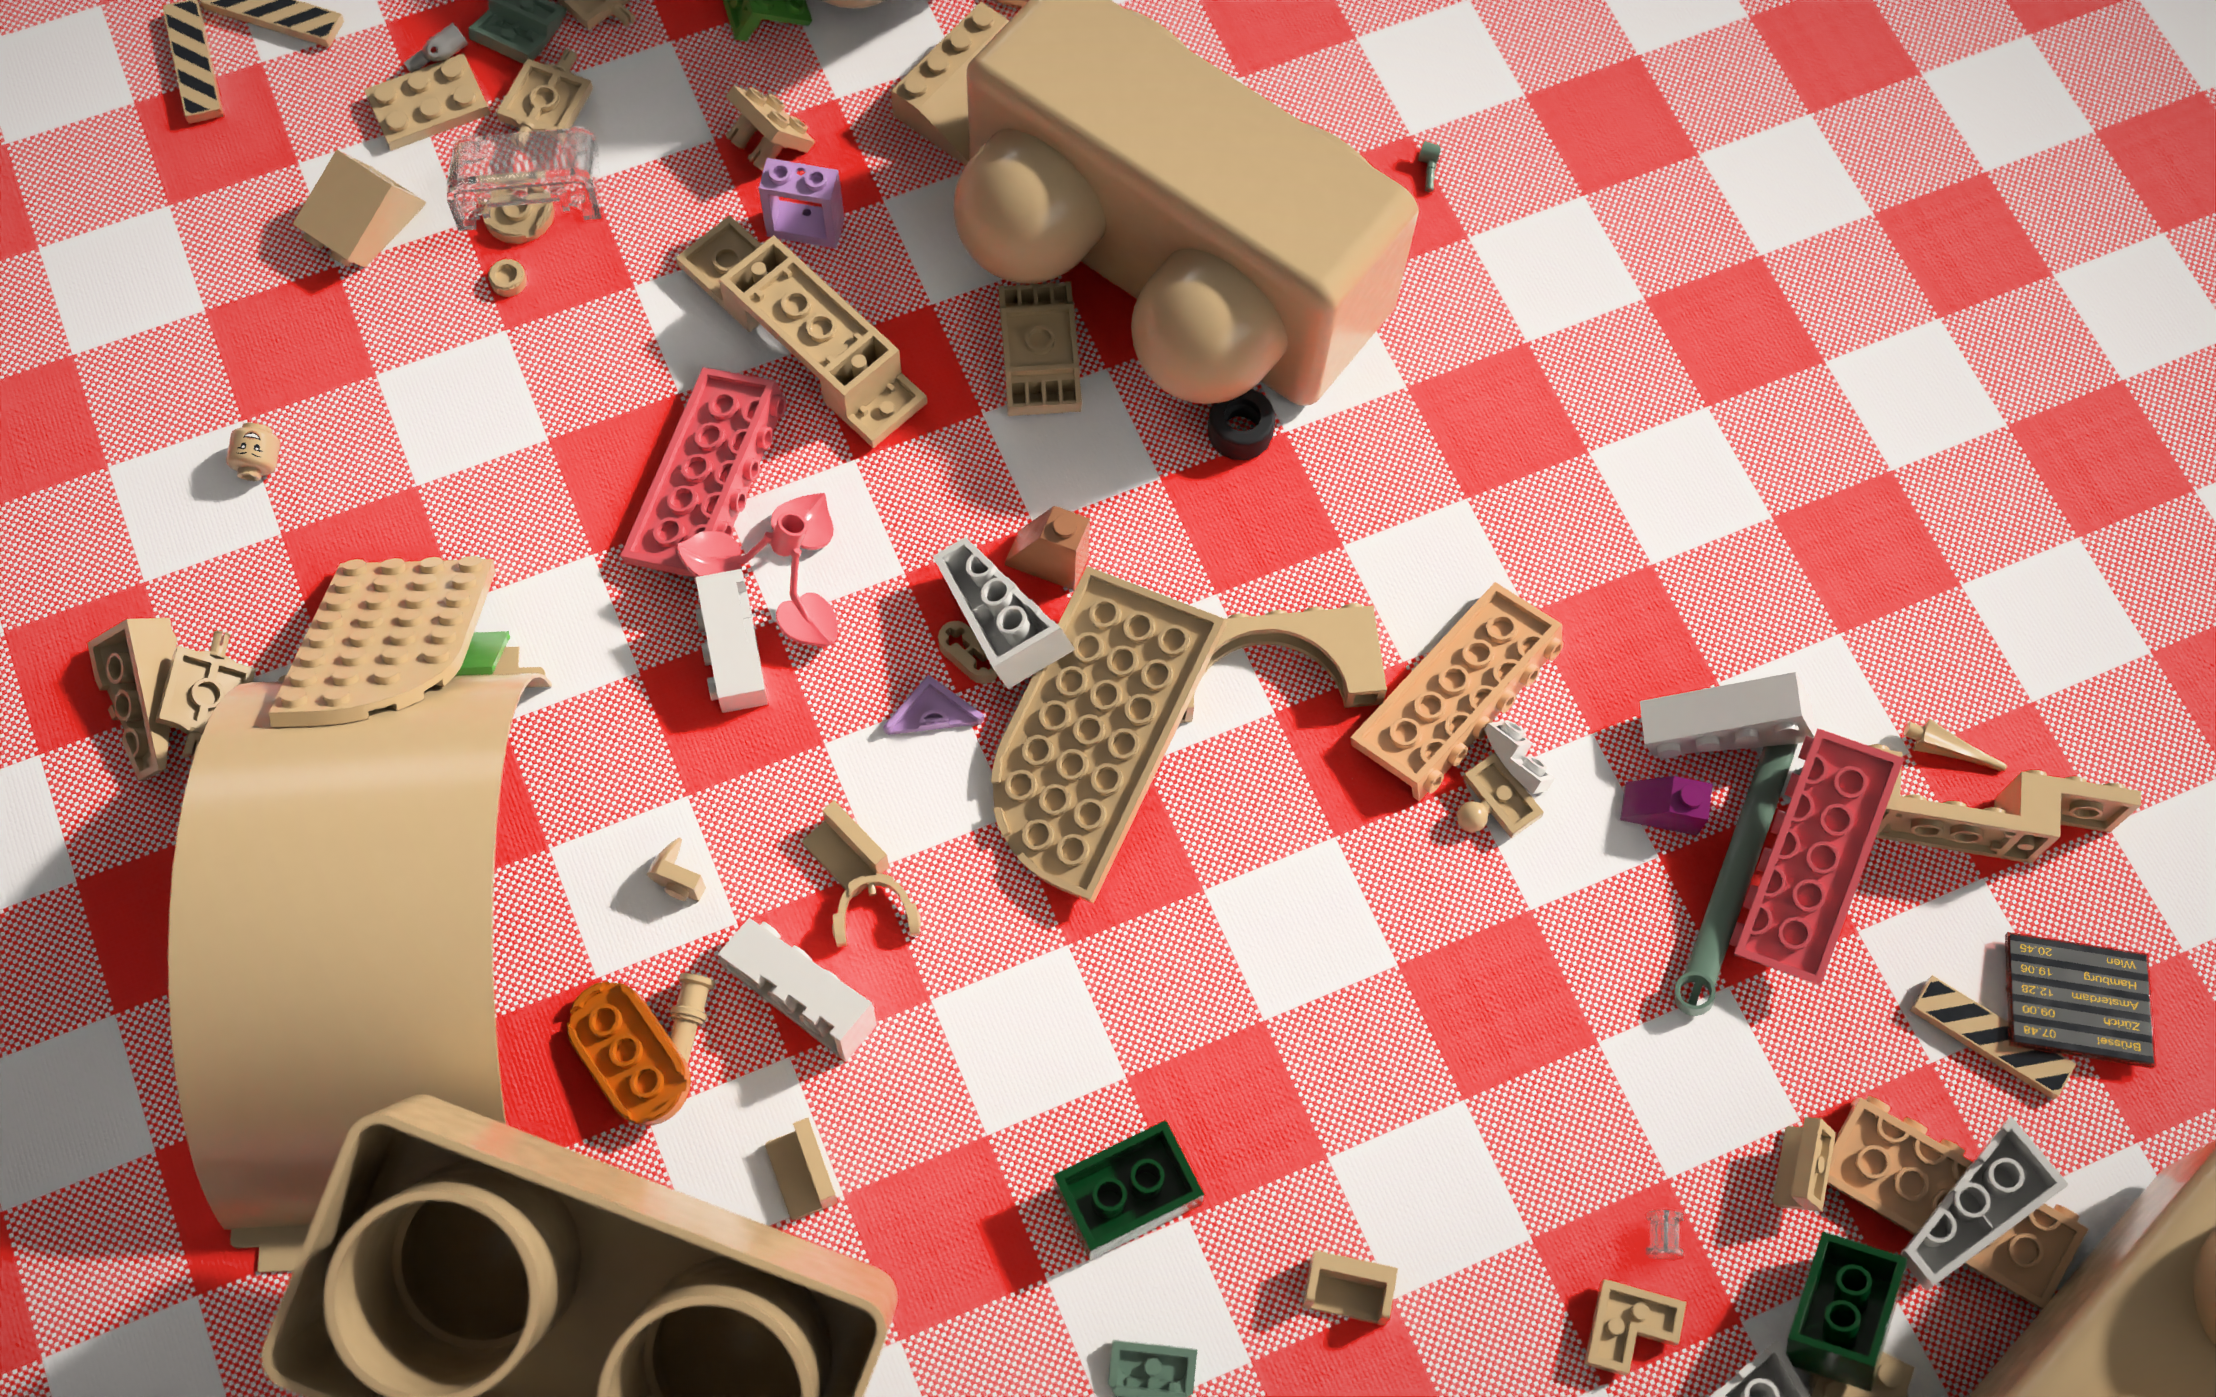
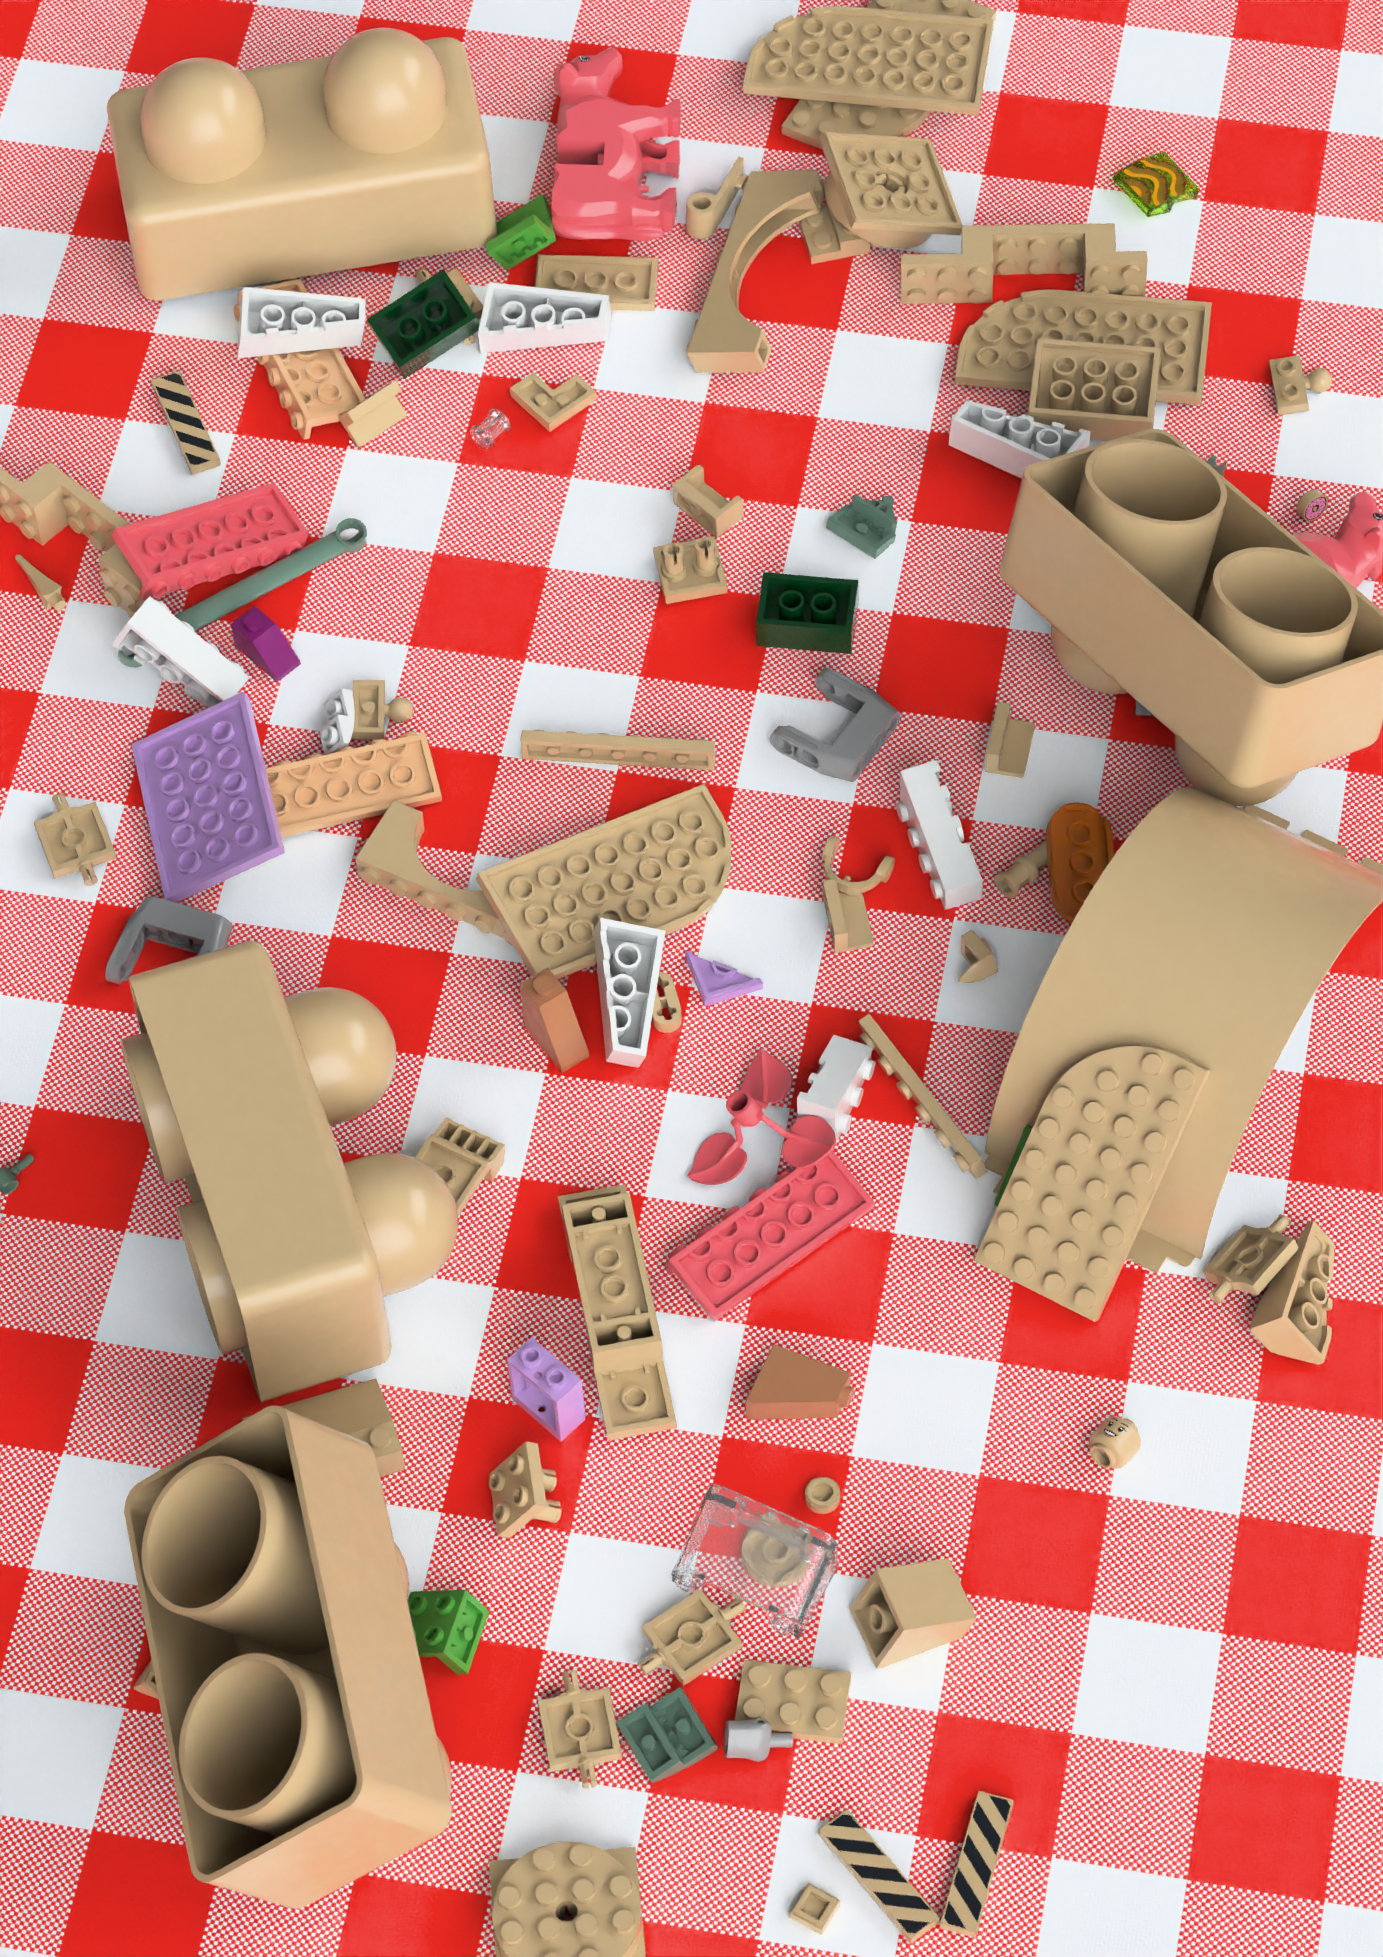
camera: 140 degrees left, 10 degrees down
(583, 347) = (798, 1388): none -> nougat slope
(641, 689) = (928, 1107): none -> tan plate
(966, 1071) = (857, 743): none -> light grey connector
(1199, 908) = (618, 750): none -> tan plate
(1303, 1181) = (690, 570): none -> tan plate
(1478, 458) = (170, 925): none -> light grey connector
(1567, 584) = (207, 798): none -> lavender plate
(1659, 488) = (74, 839): none -> tan plate
(2079, 1000) = (112, 410): piece -> none

